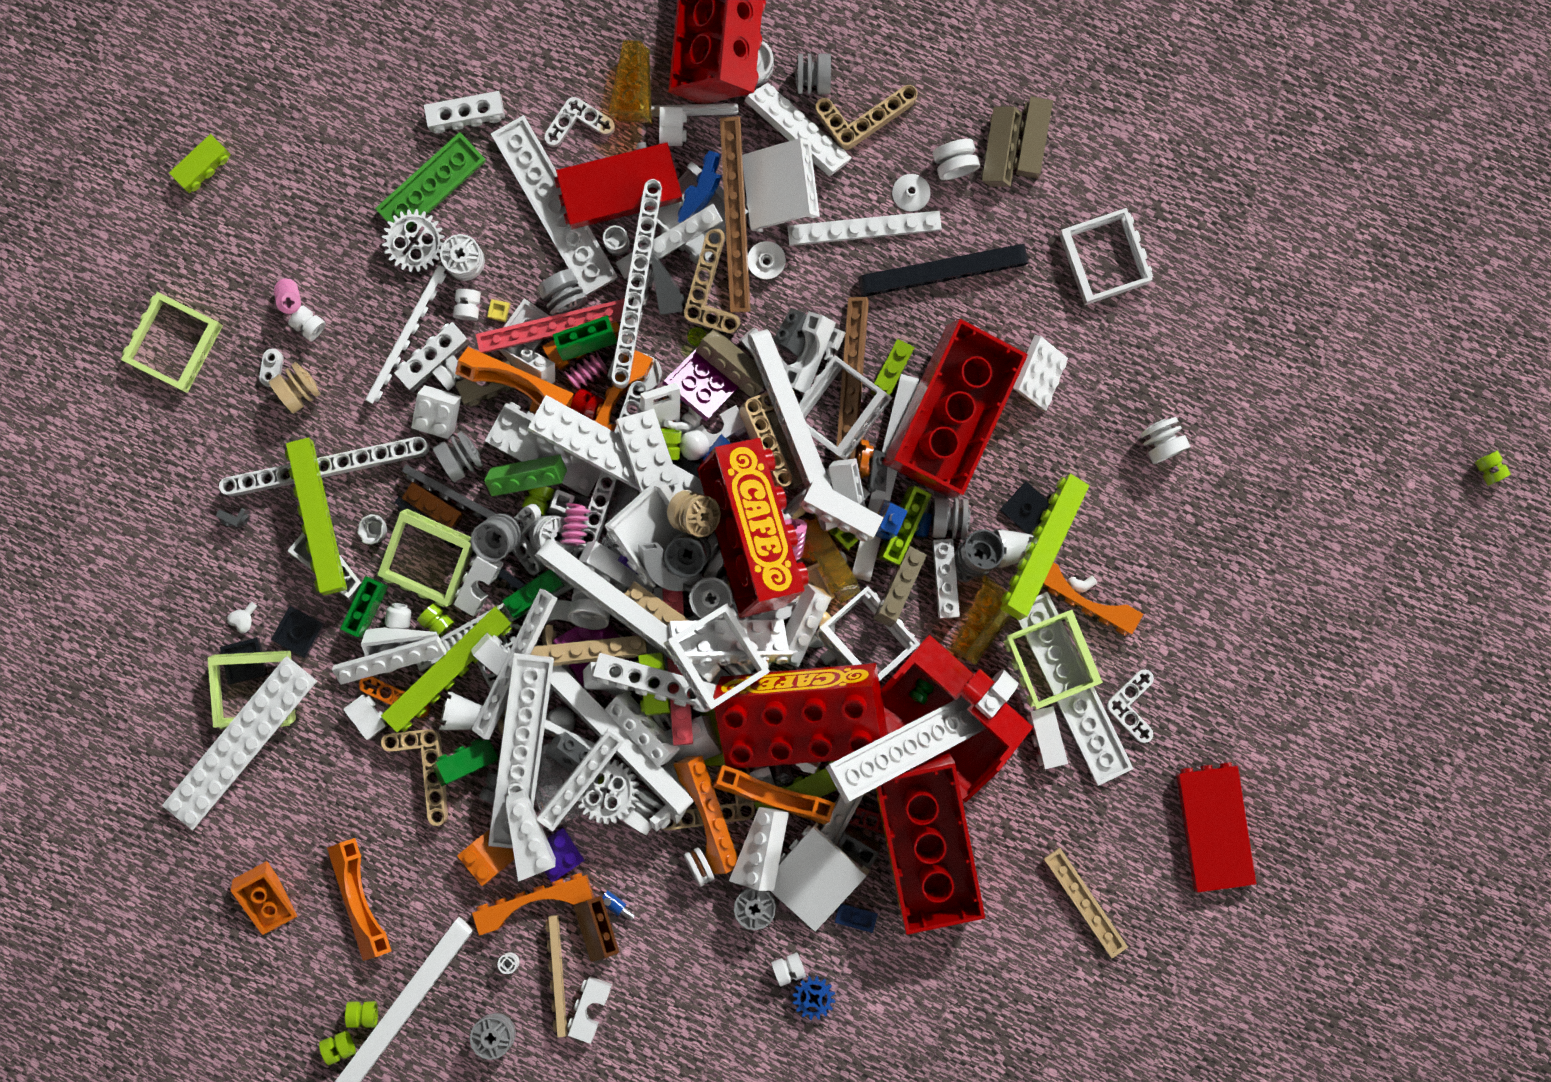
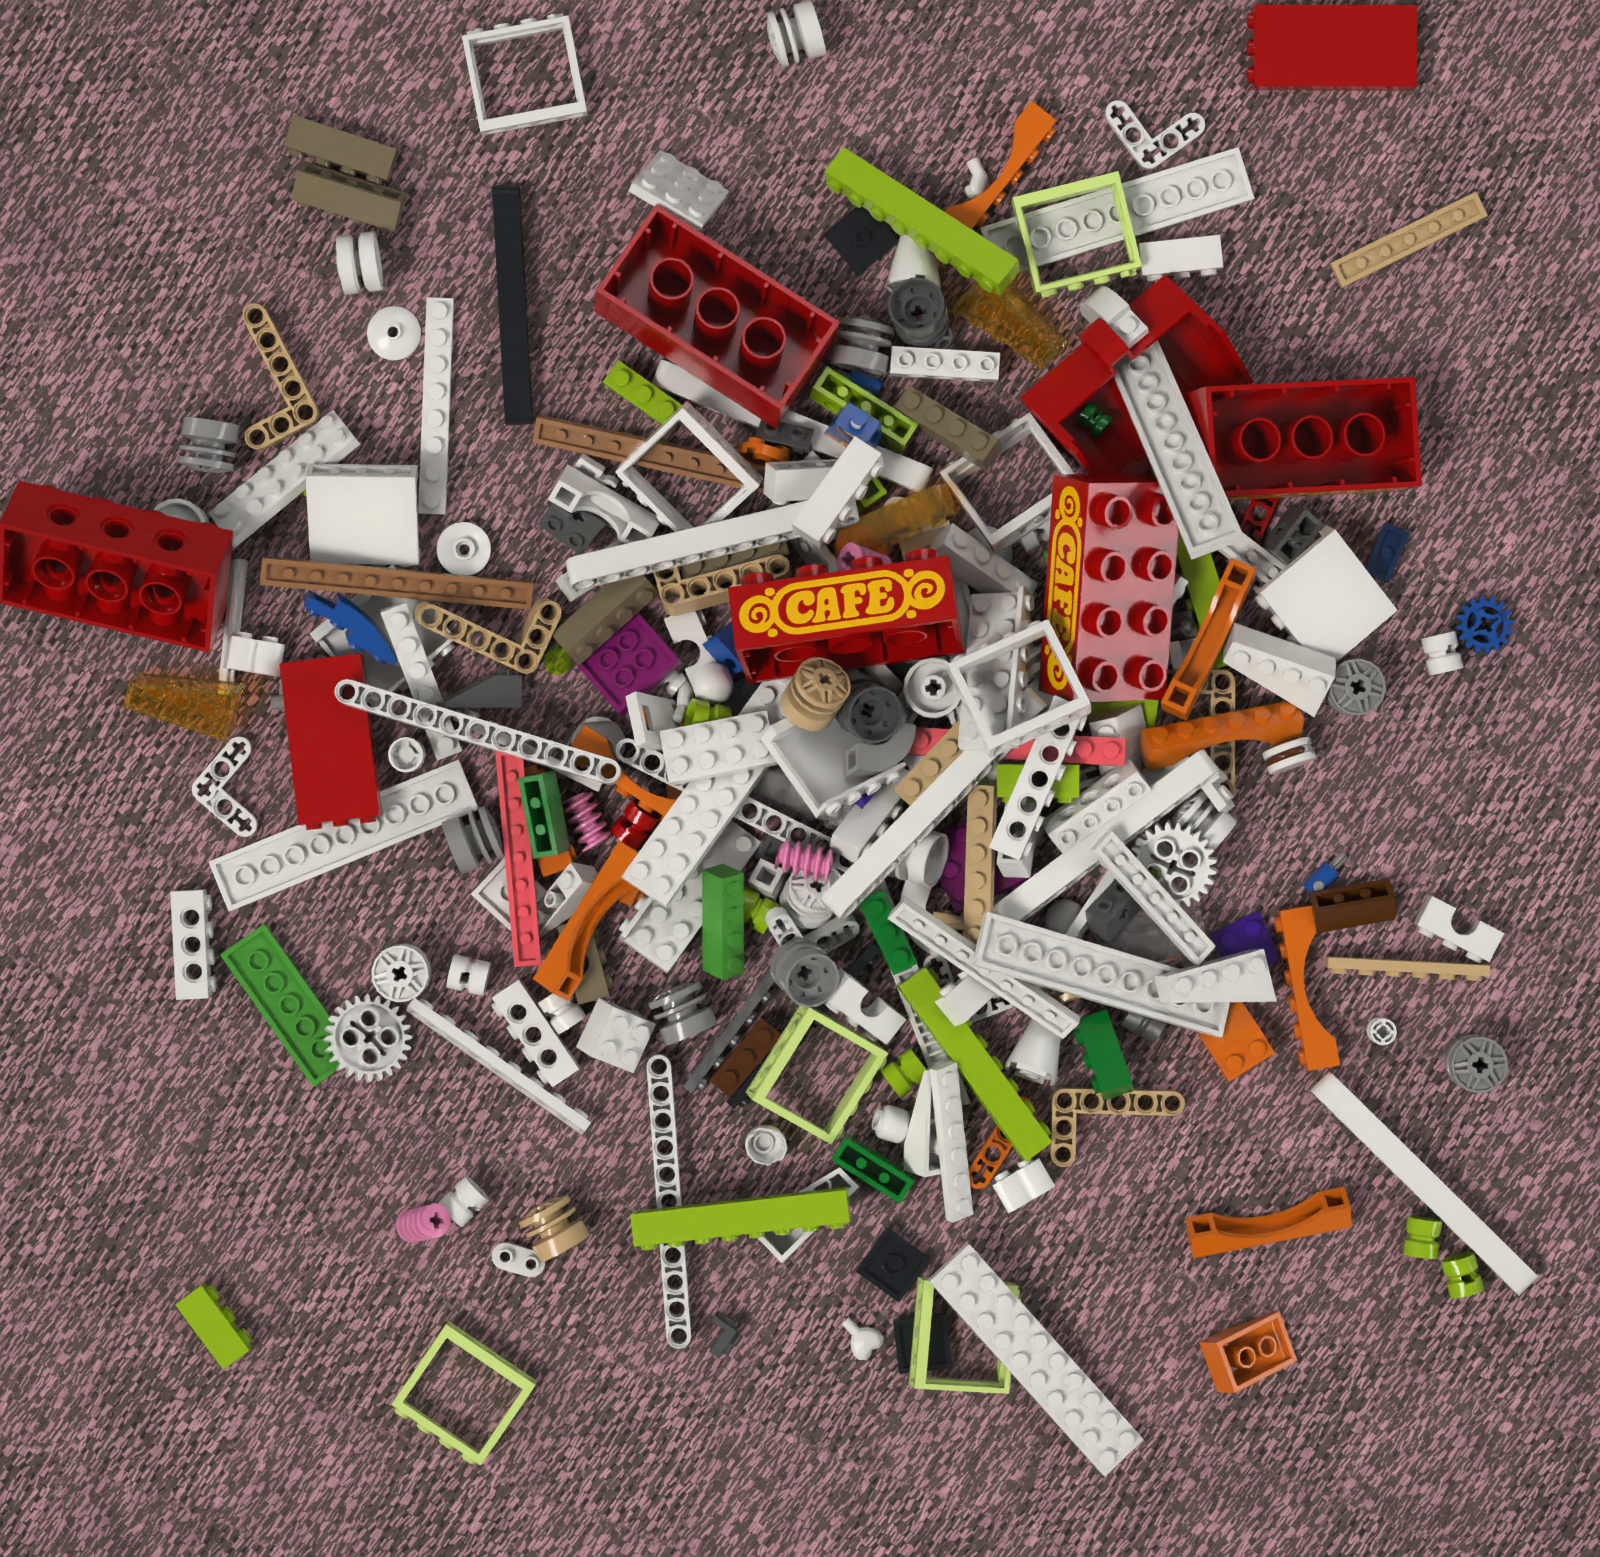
camera: 85 degrees left, 5 degrees up
(498, 310) = (481, 932): light yellow tile -> none

